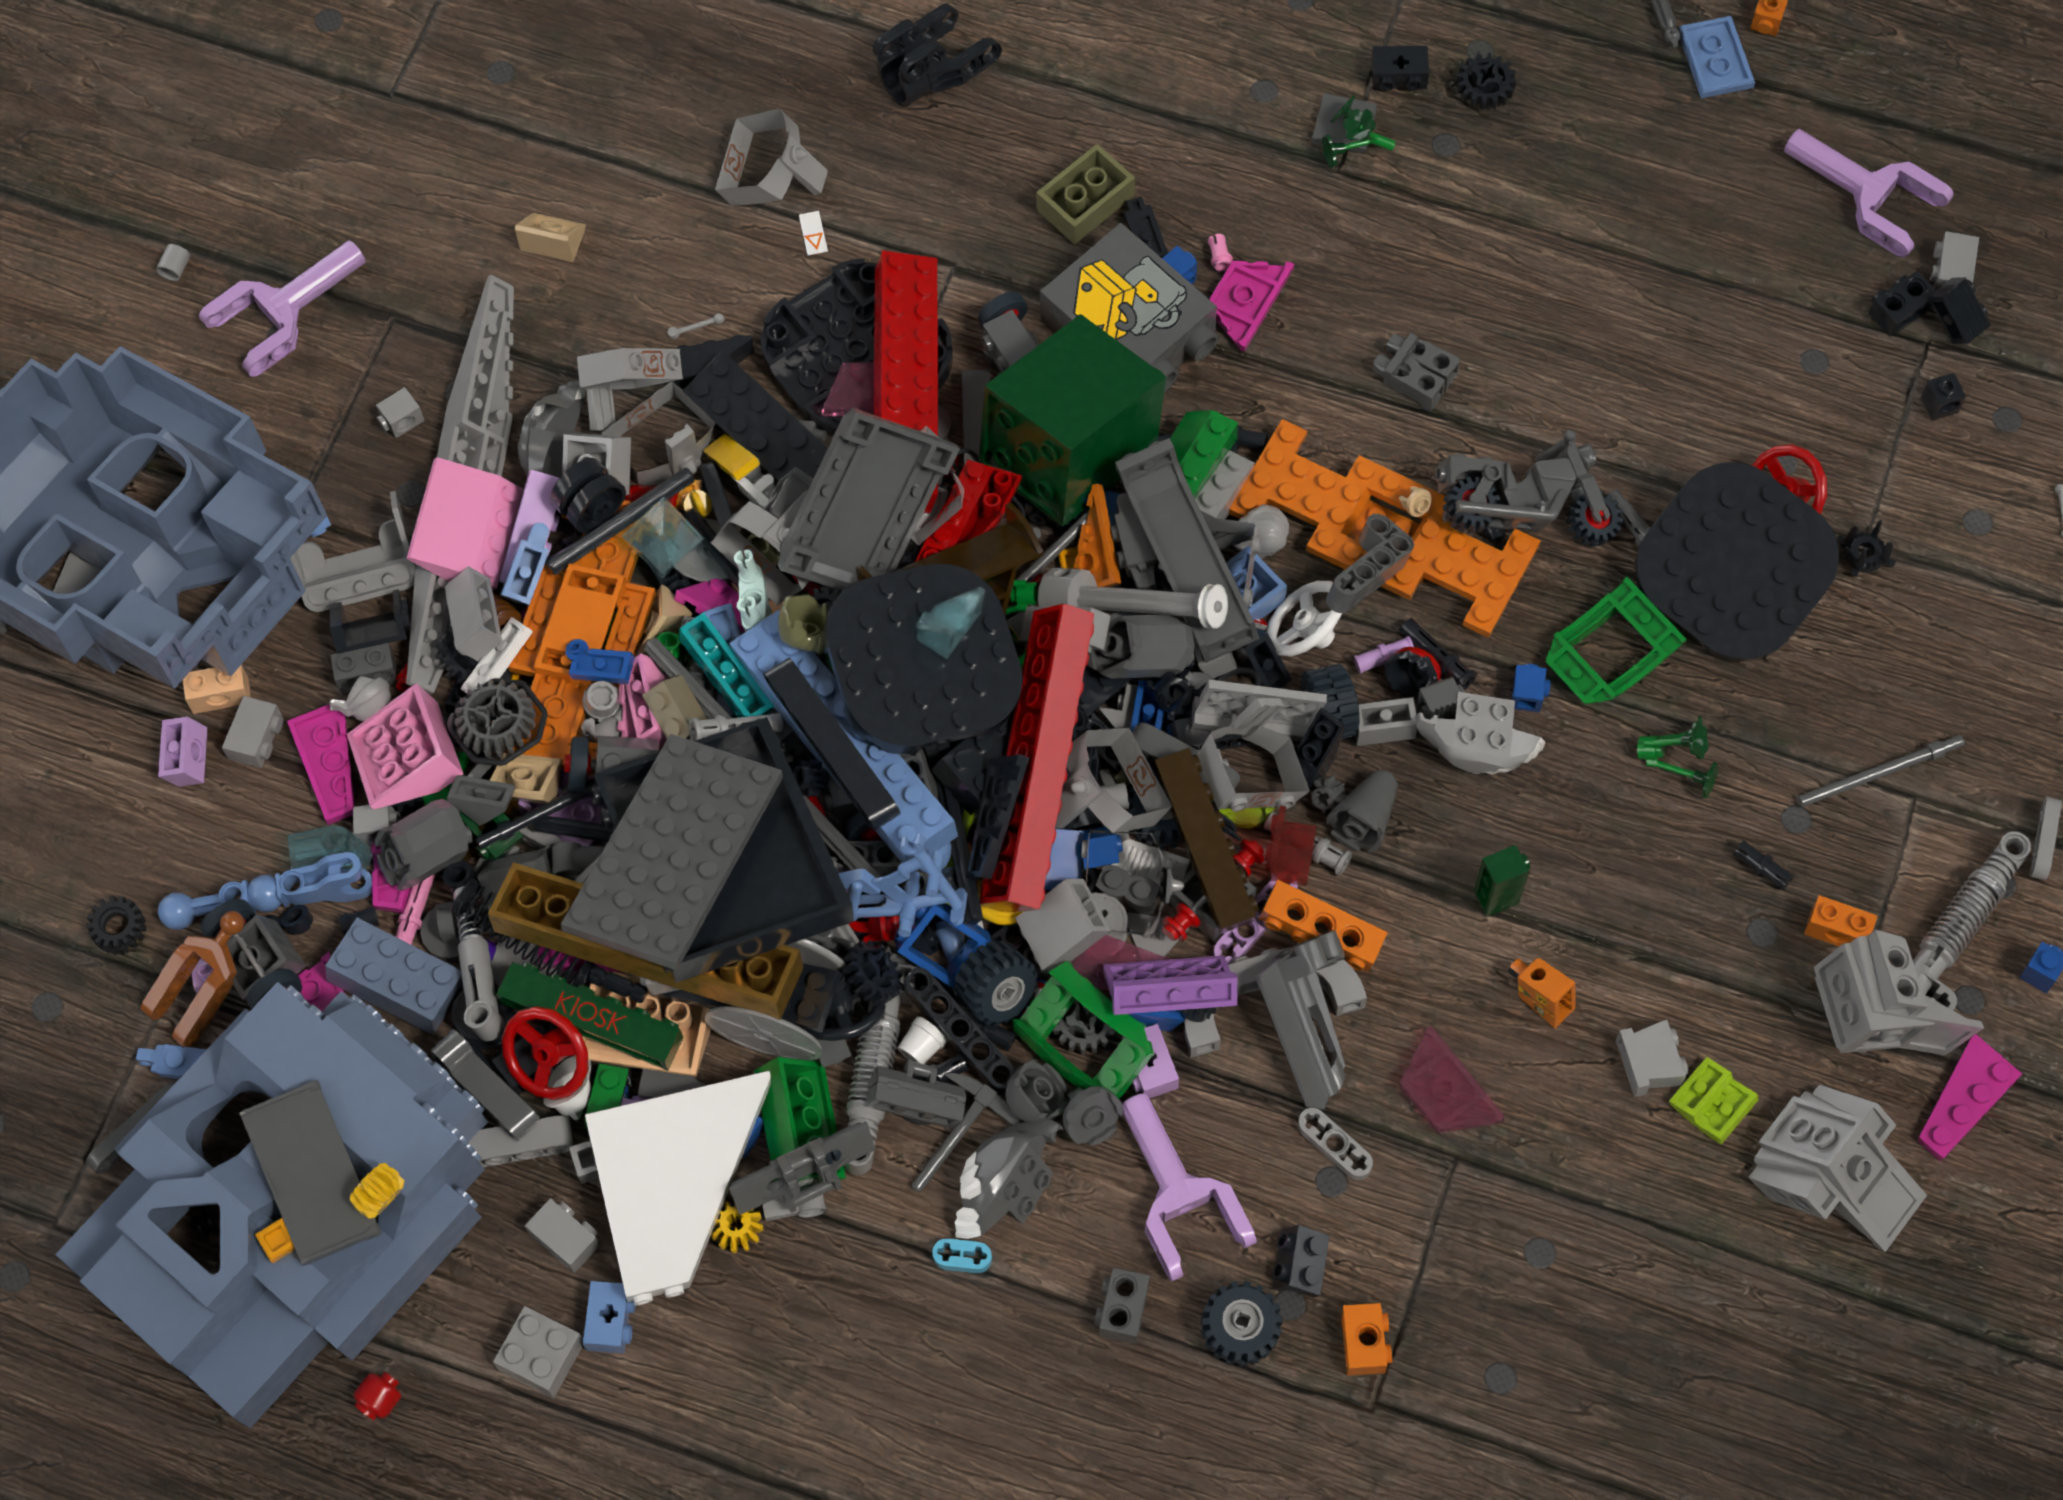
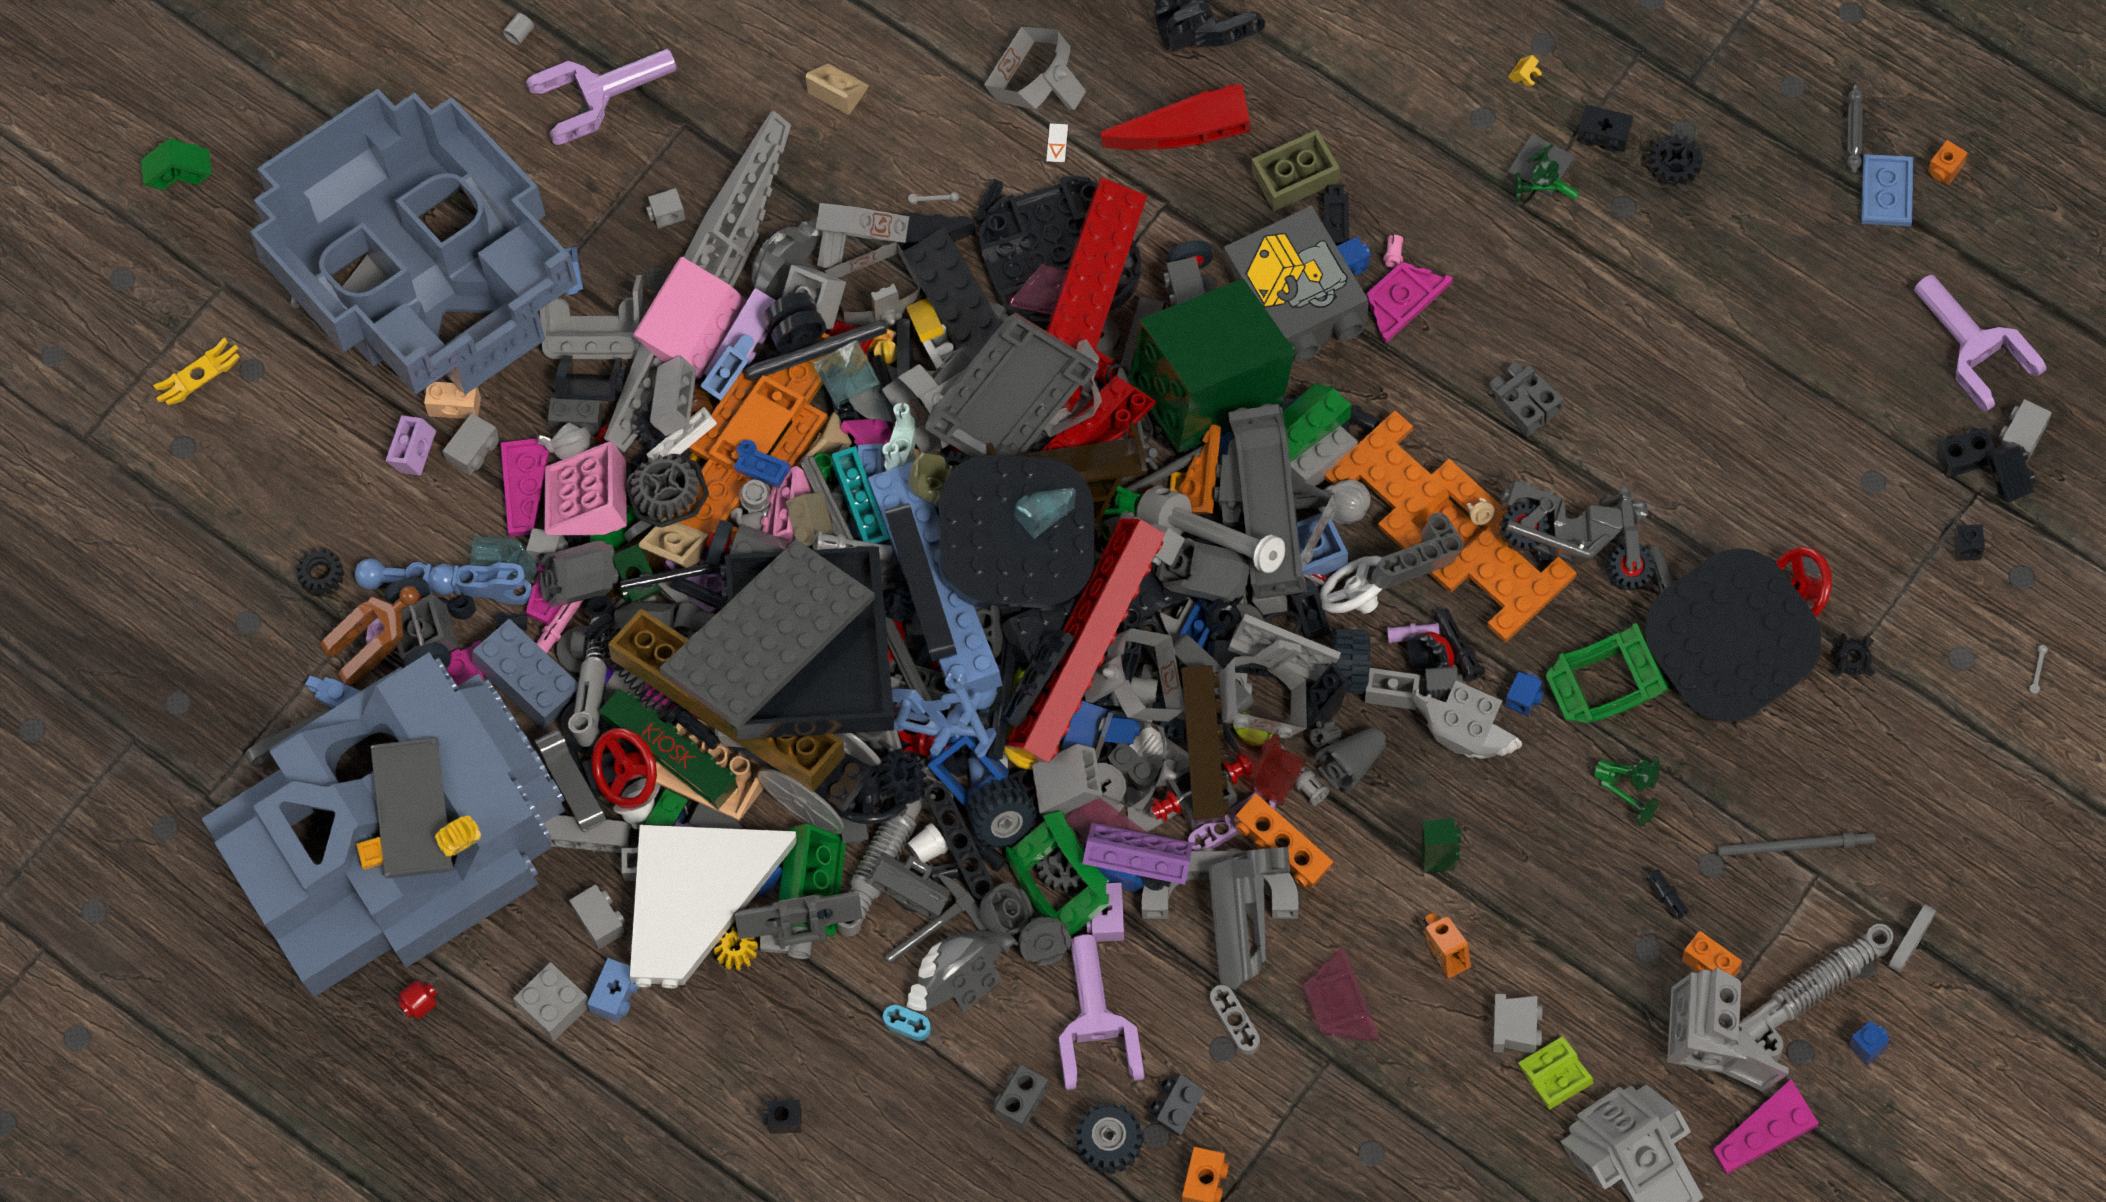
camera: 20 degrees right, 0 degrees up
(480, 798) = (632, 549): dark grey slope -> none
(758, 312) = (988, 200): none -> black axle
(860, 1396) = (792, 1124): none -> black brick
(948, 175) = (1184, 123): none -> red wedge
(1292, 29) = (1523, 69): none -> yellow tile

